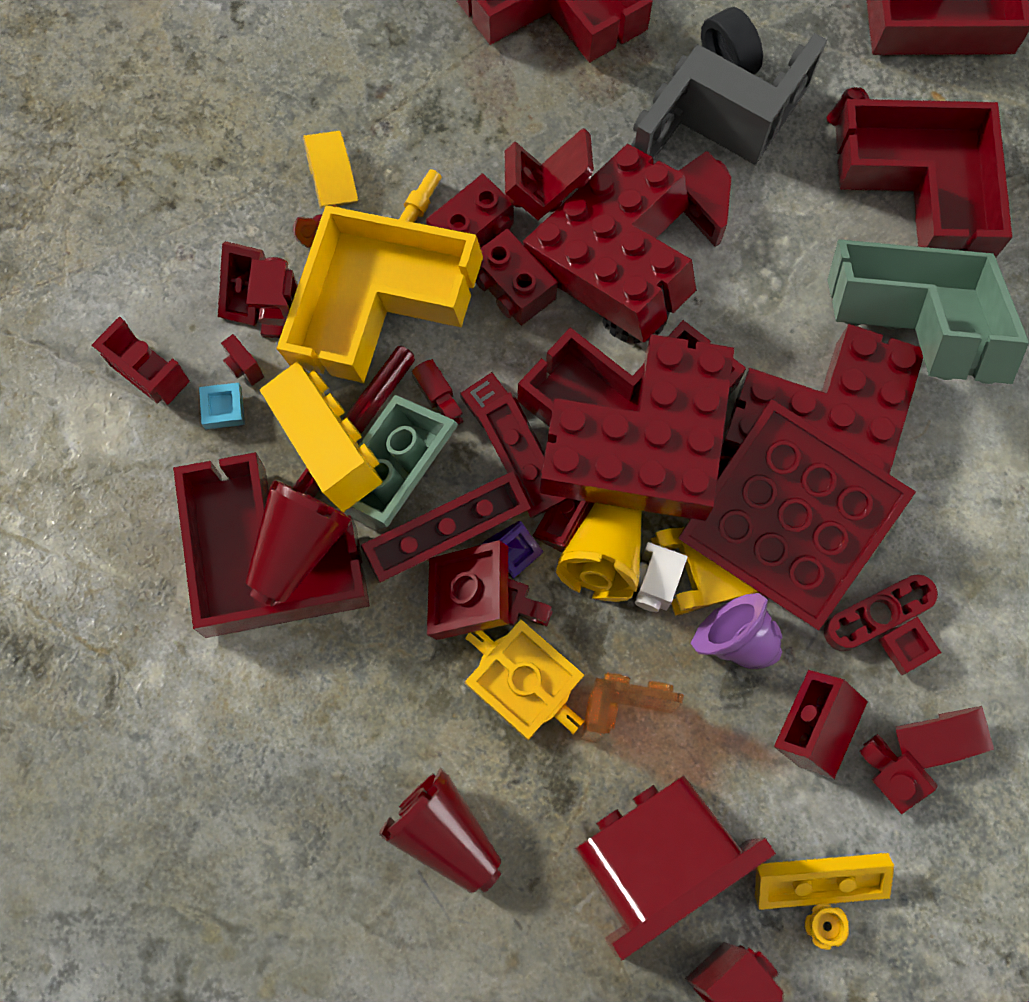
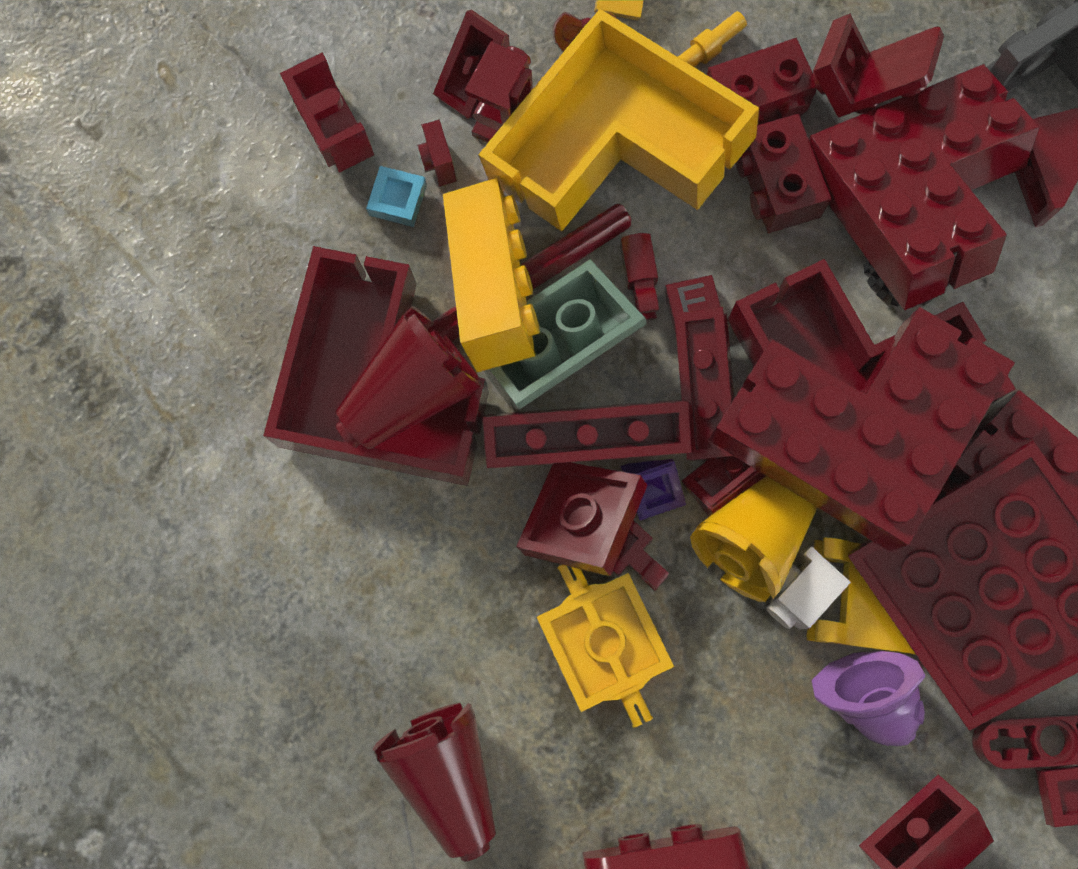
camera: 30 degrees right, 5 degrees up
(616, 689) = (674, 722): clear orange bracket -> none

